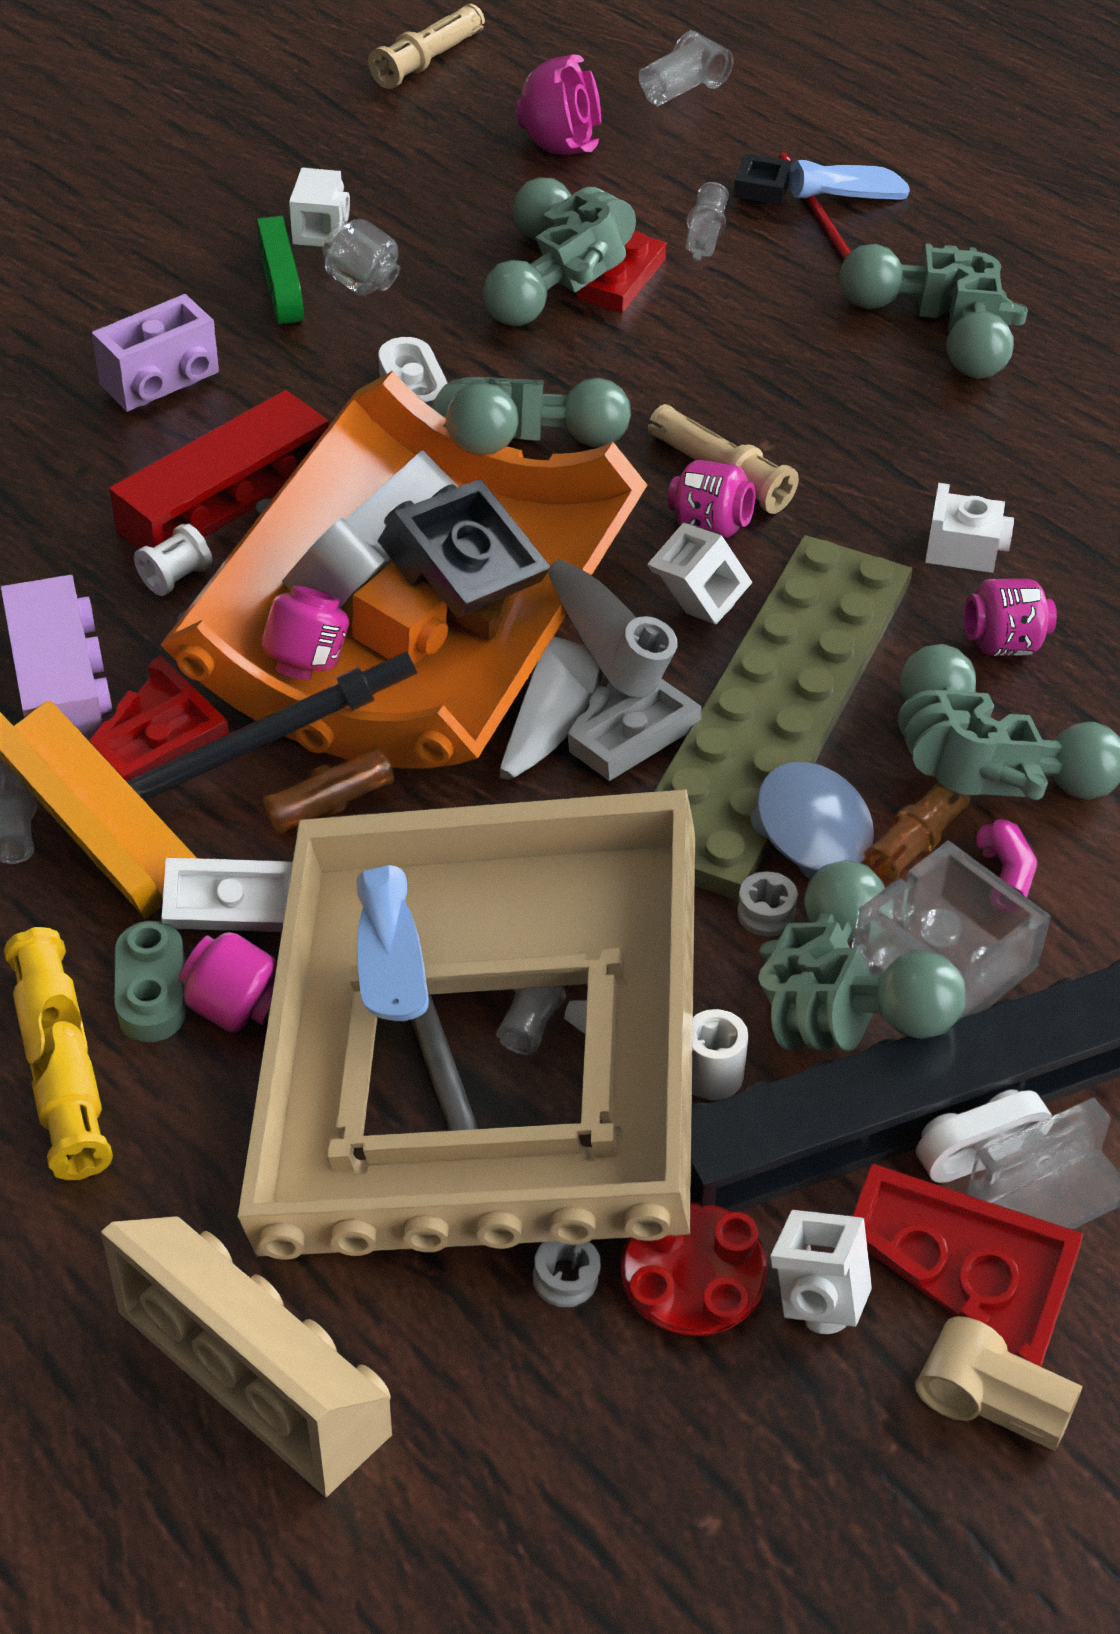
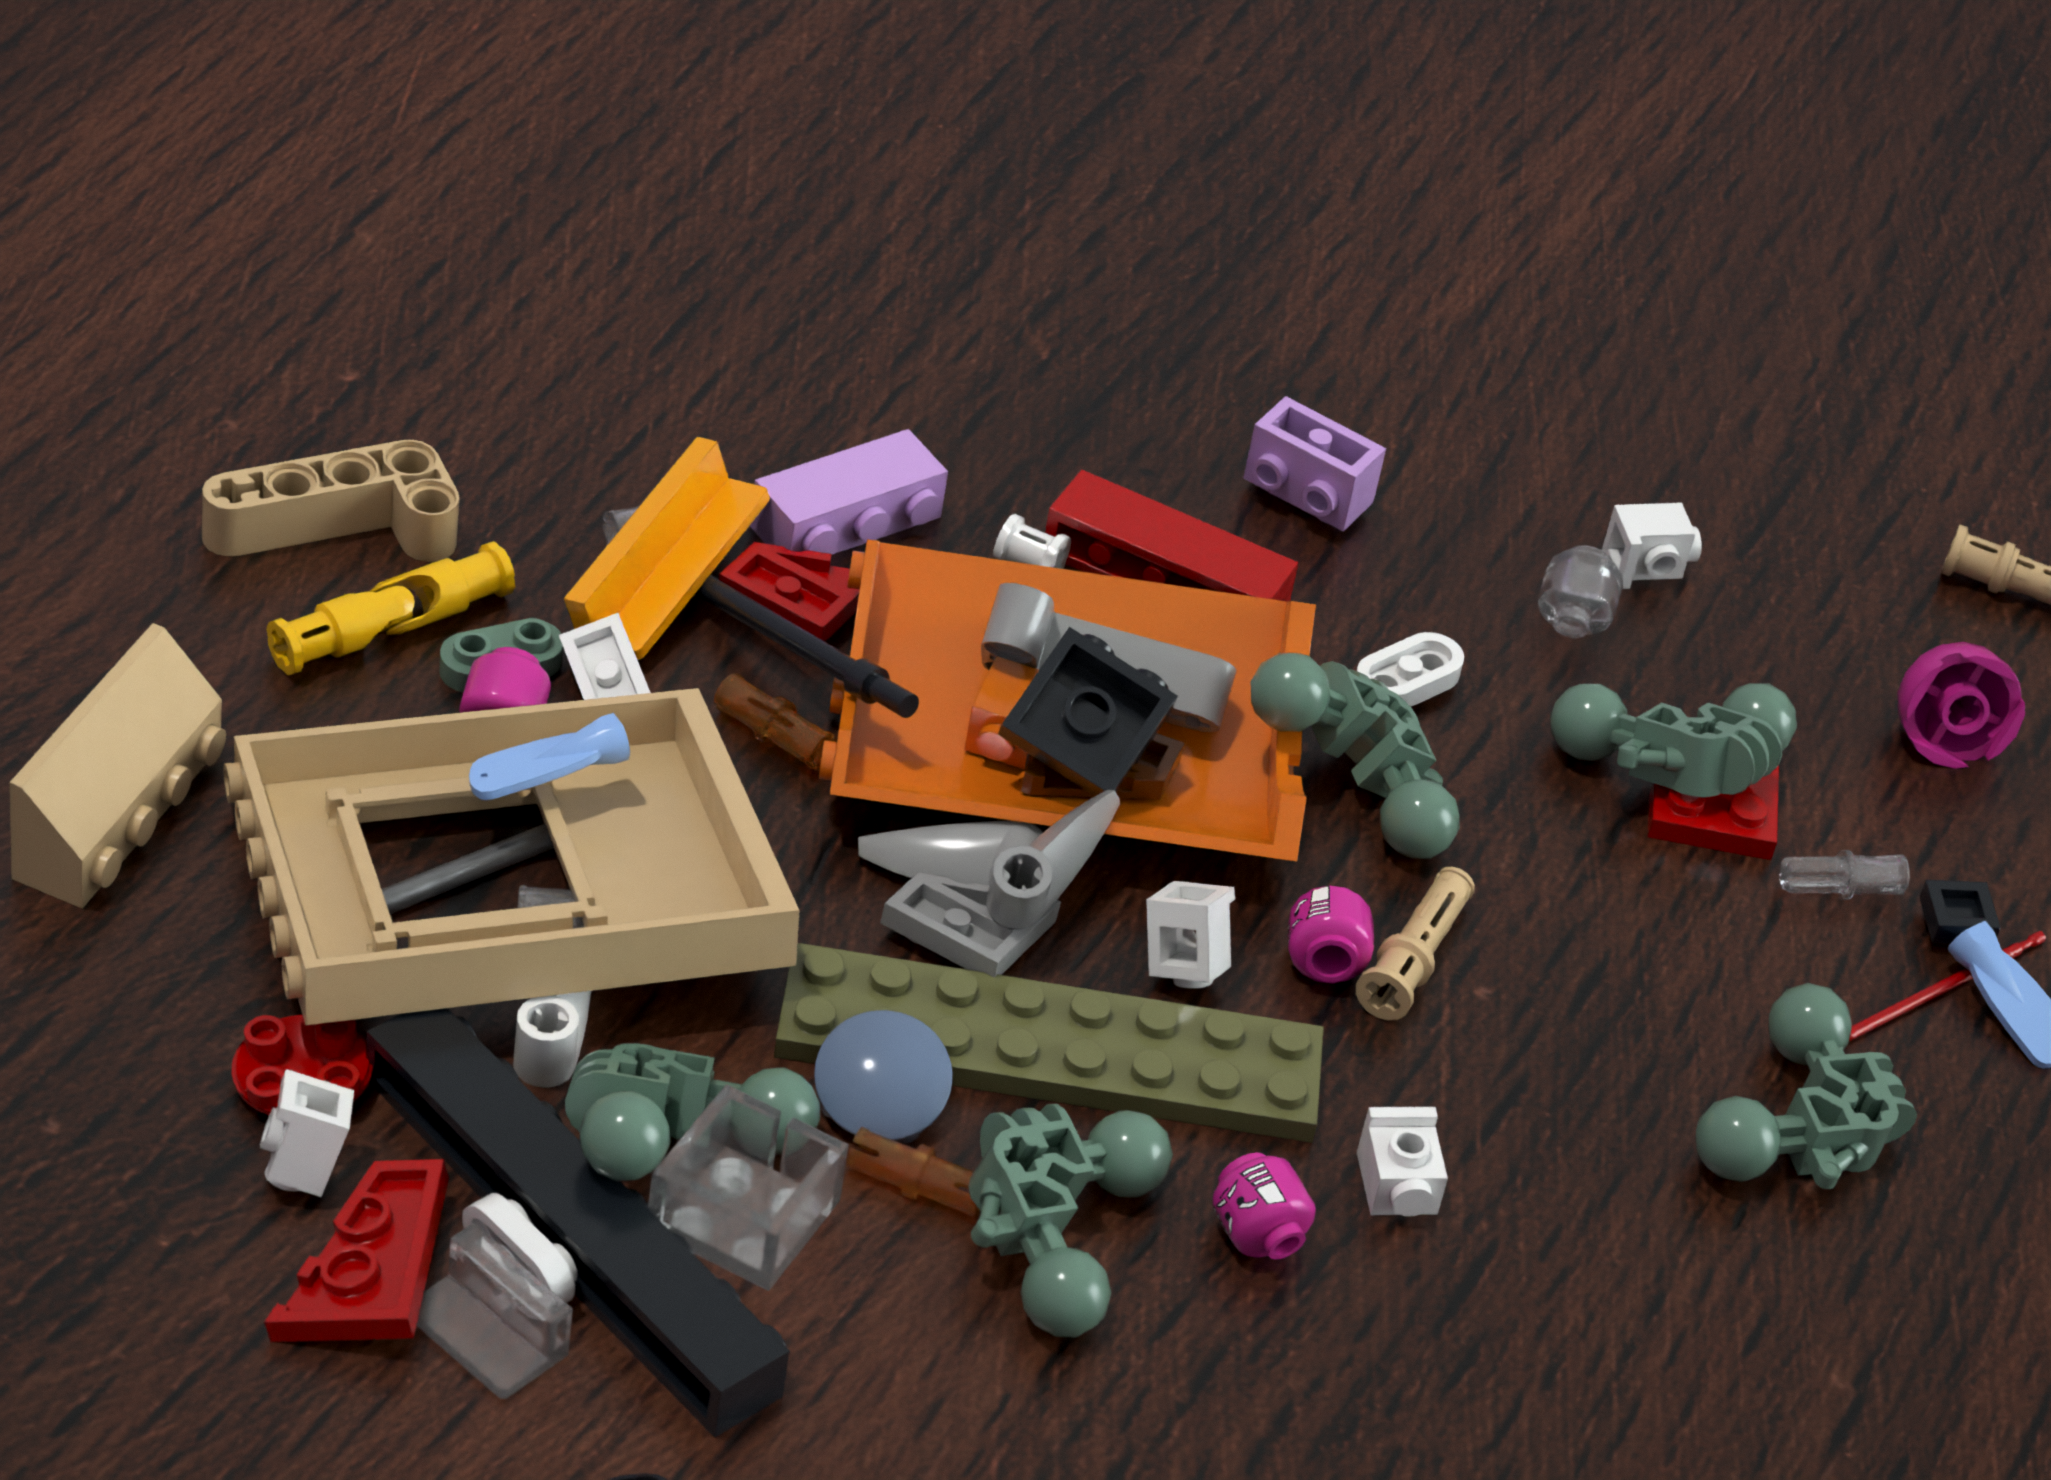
camera: 65 degrees right, 5 degrees down
(280, 270) = (1551, 527): green beam -> none
(305, 632) = (939, 639): dark pink head -> none
(561, 1292) = (267, 998): light grey bush -> none
(775, 890) = (766, 1050): light grey bush -> none
(976, 1376) = (236, 1278): tan piece -> none
(1007, 842) = (910, 1258): dark pink arm -> none

